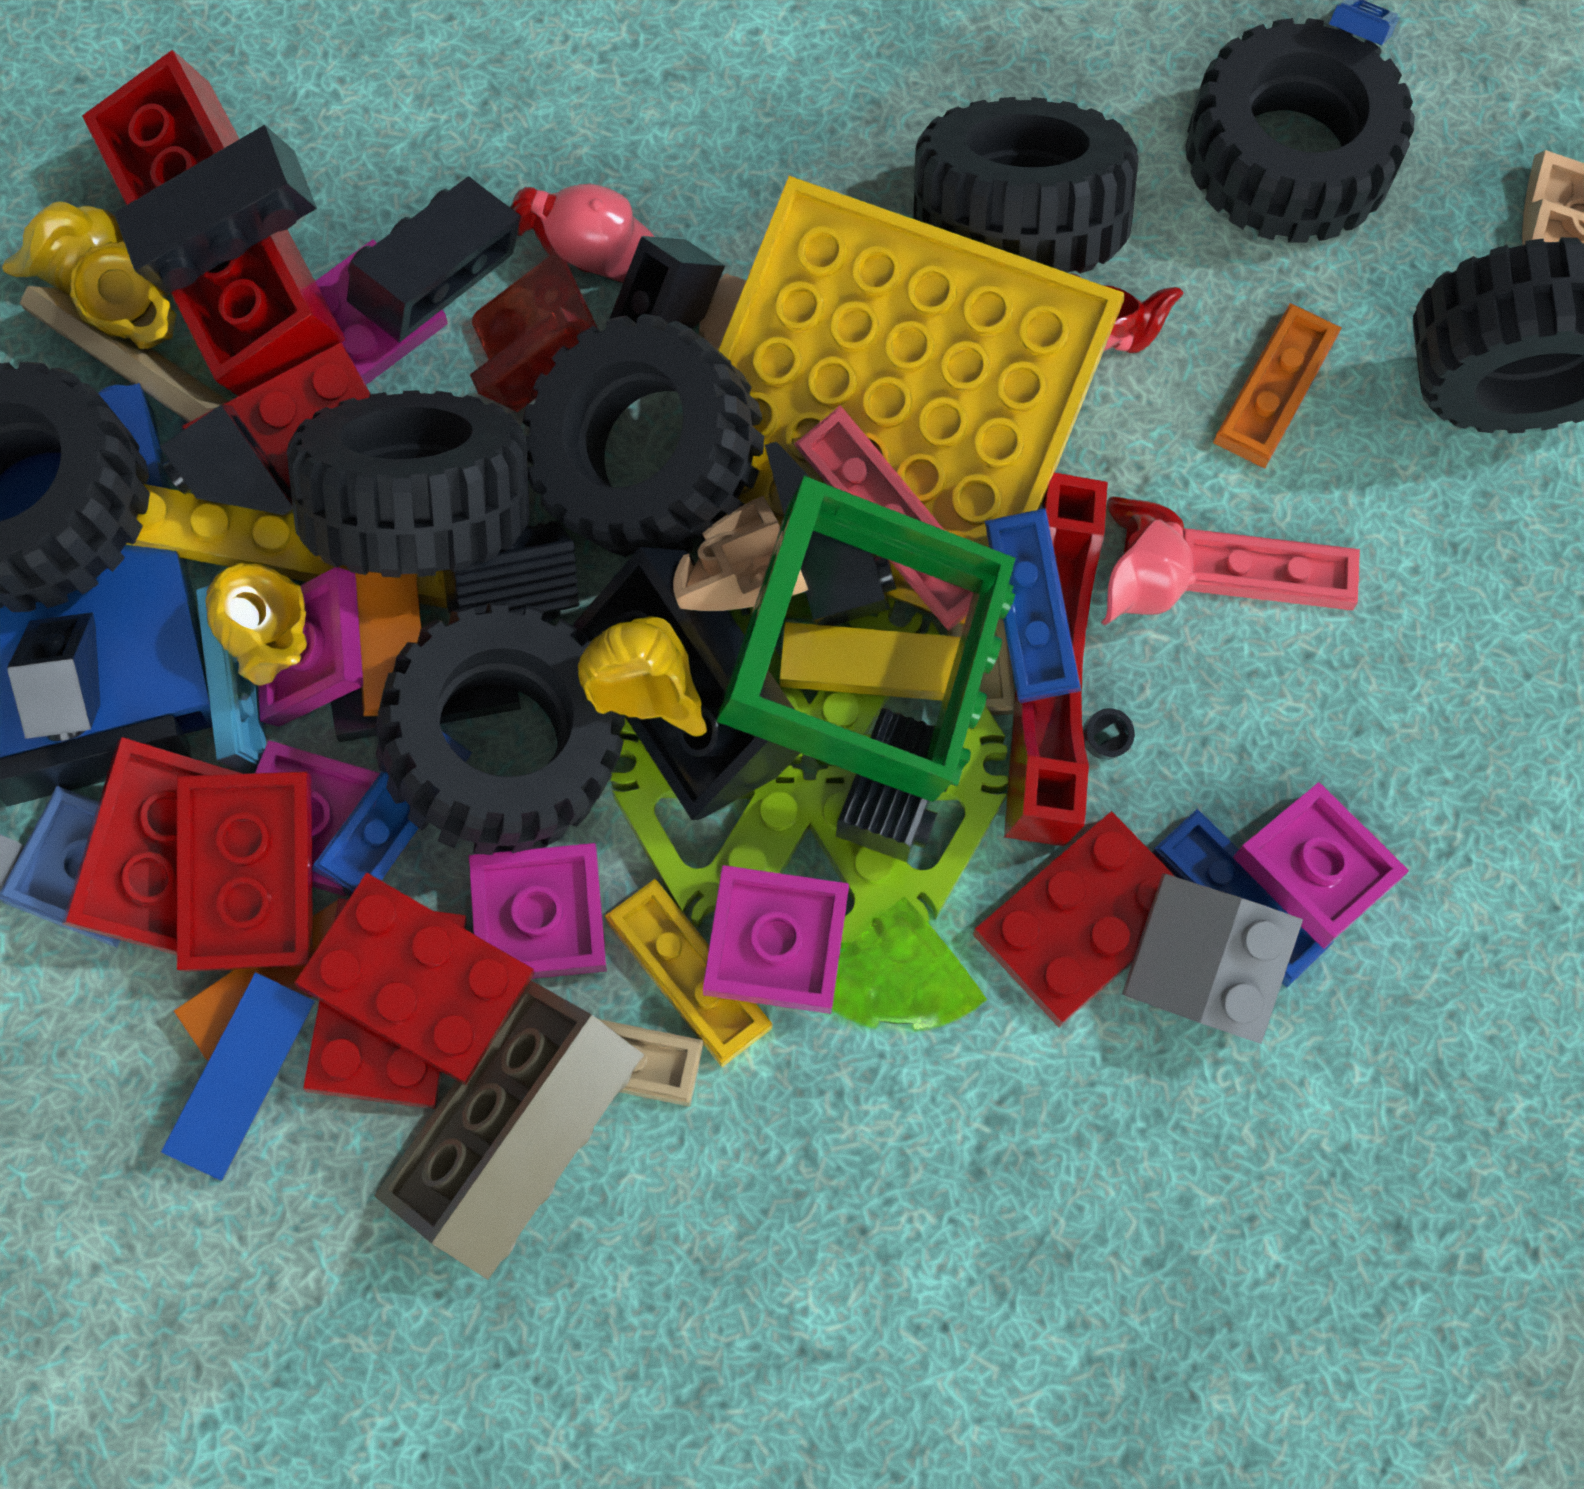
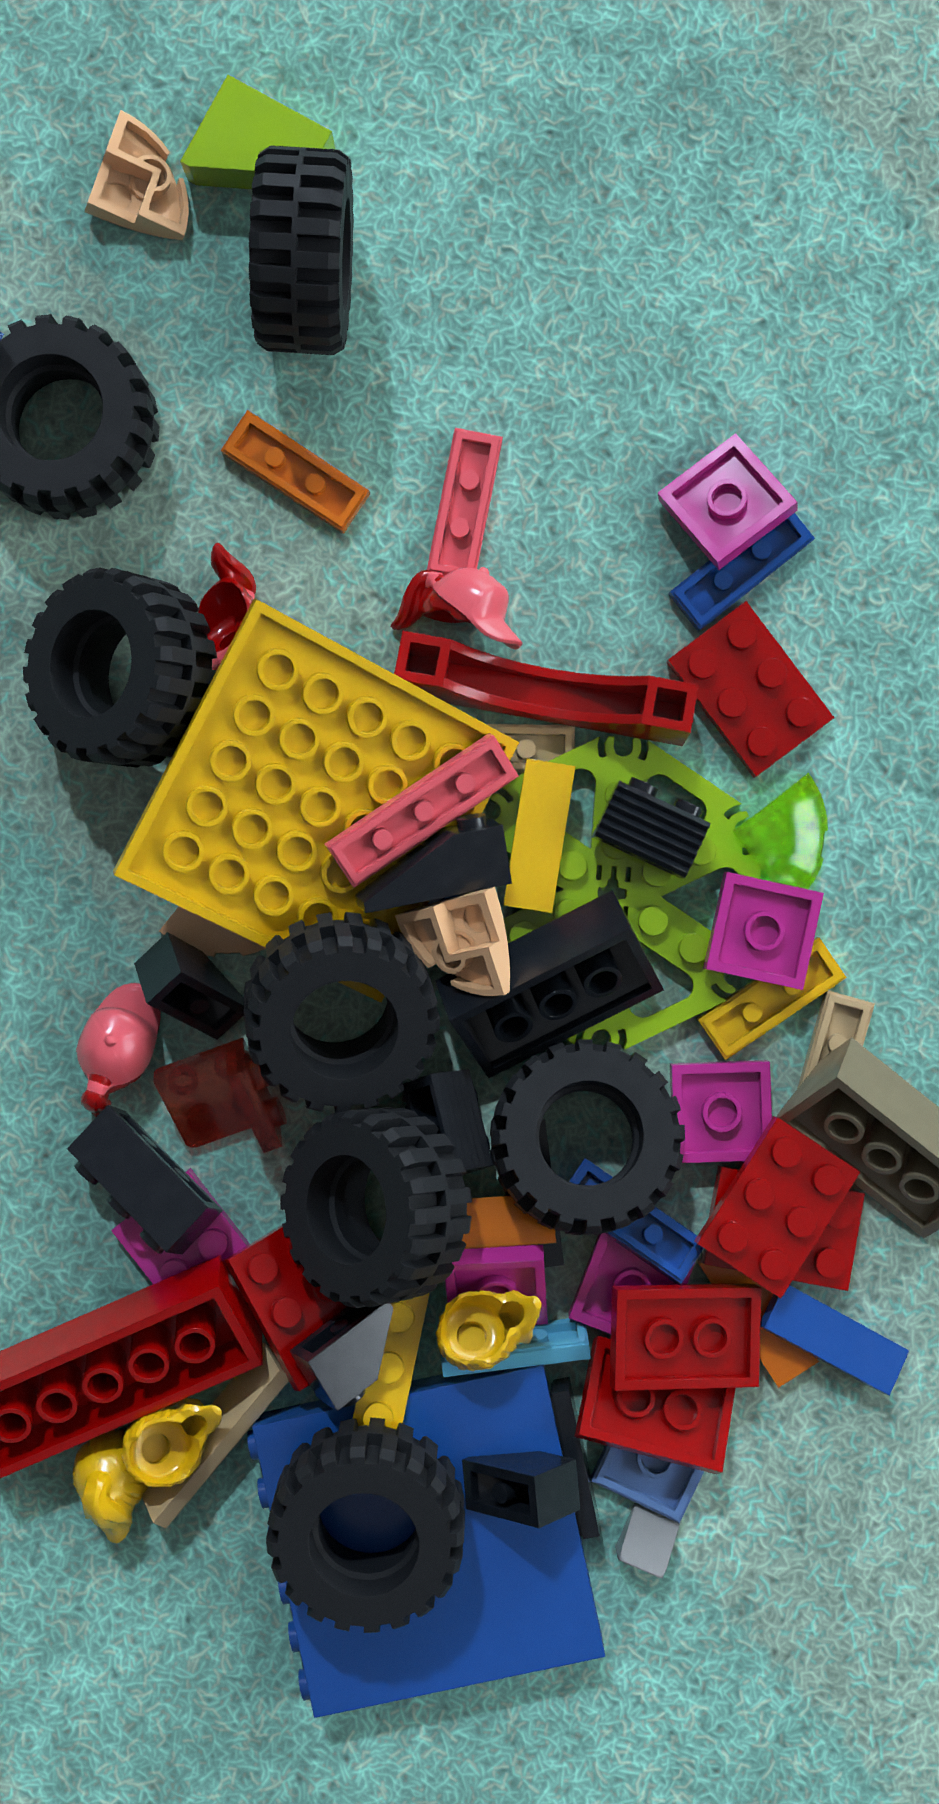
camera: 80 degrees left, 20 degrees up
(215, 210) = (119, 1367): black brick -> none
(642, 674) = (565, 1025): yellow hair -> none
(911, 544) = (564, 758): green window -> none
(1037, 619) = (509, 704): blue tile -> none
(1112, 747) = (612, 651): black hinge -> none
(1212, 957) = (803, 596): light grey slope -> none

